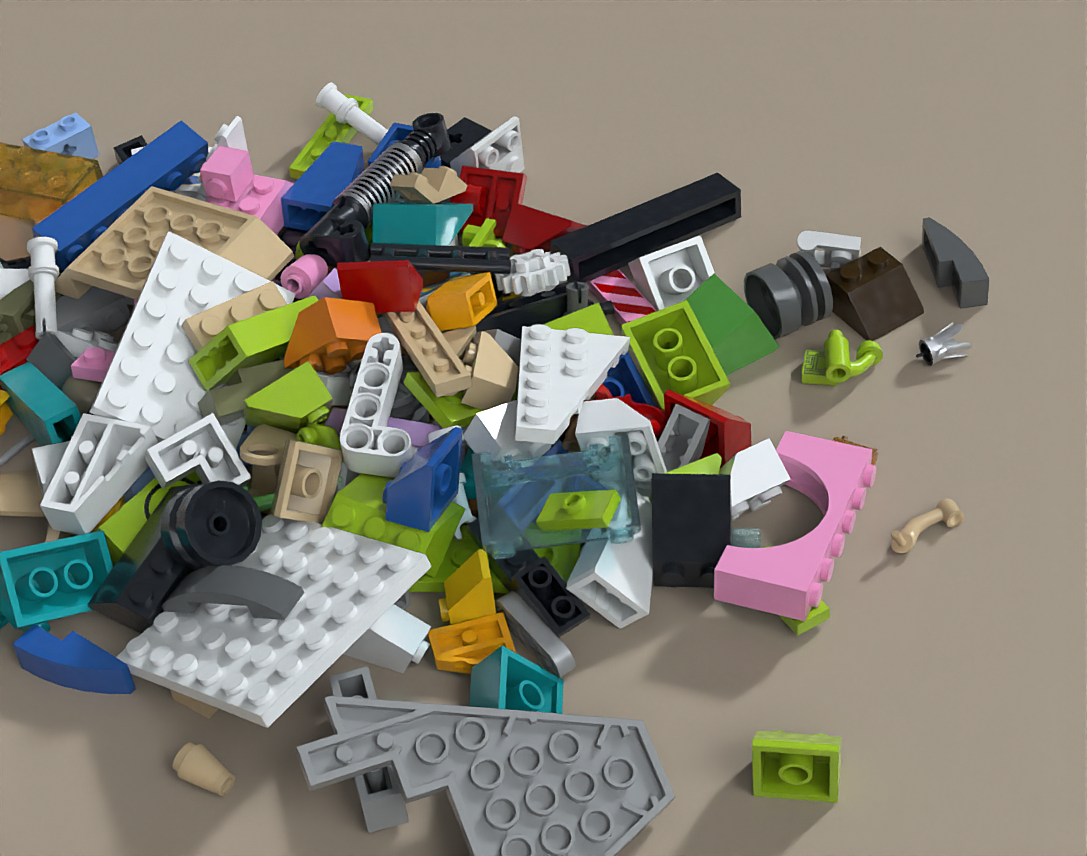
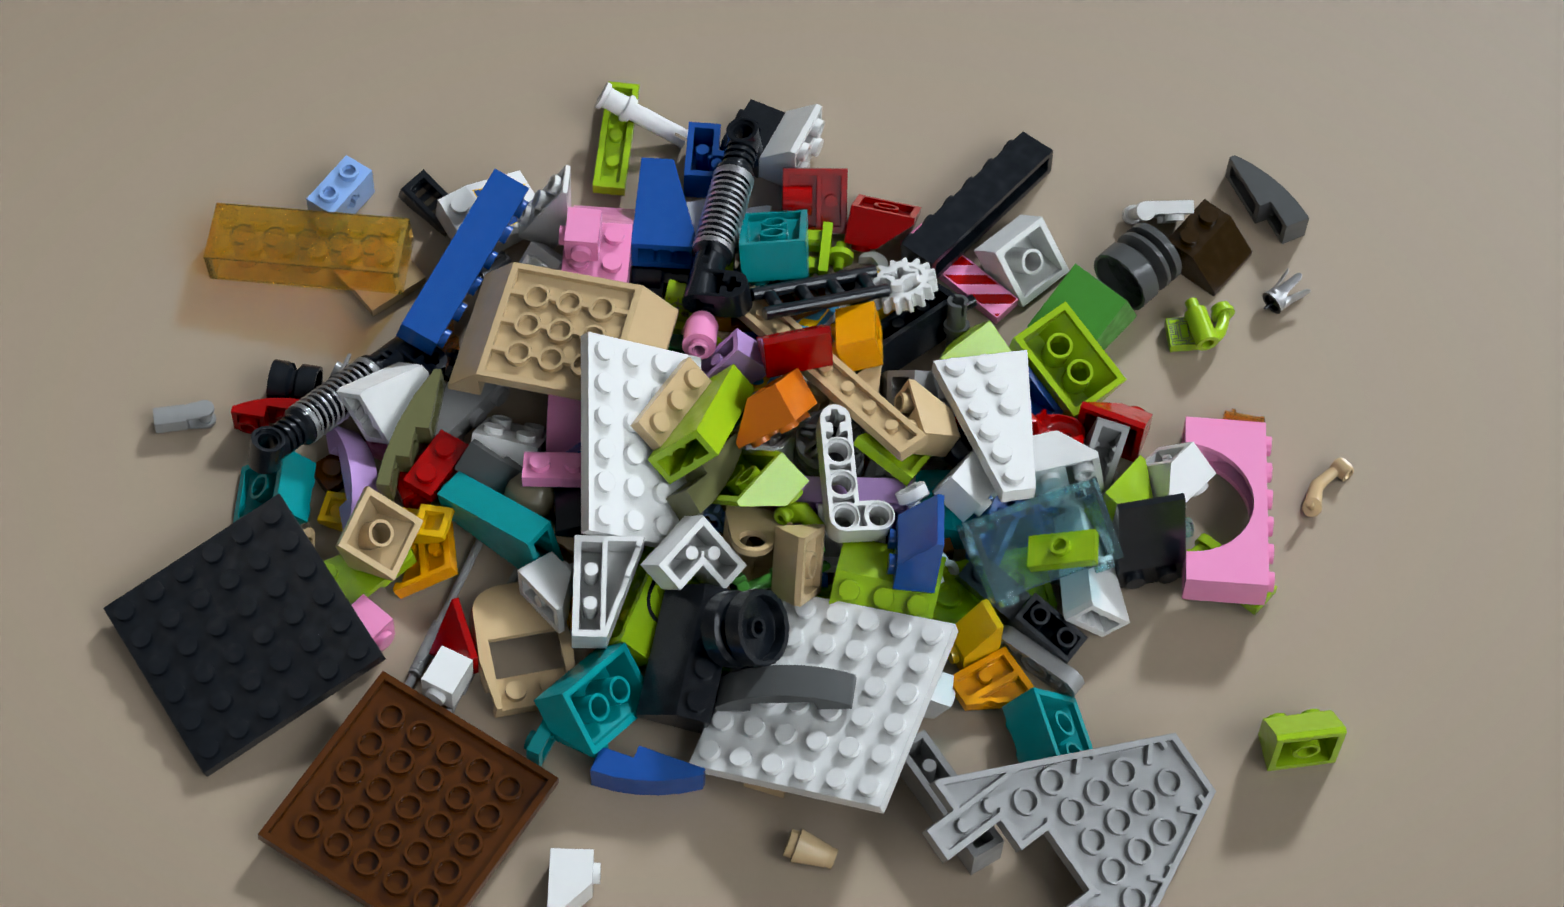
camera: 25 degrees left, 15 degrees up
(43, 274) = (443, 378): white pin -> none
(430, 186) = (772, 204): tan slope -> none

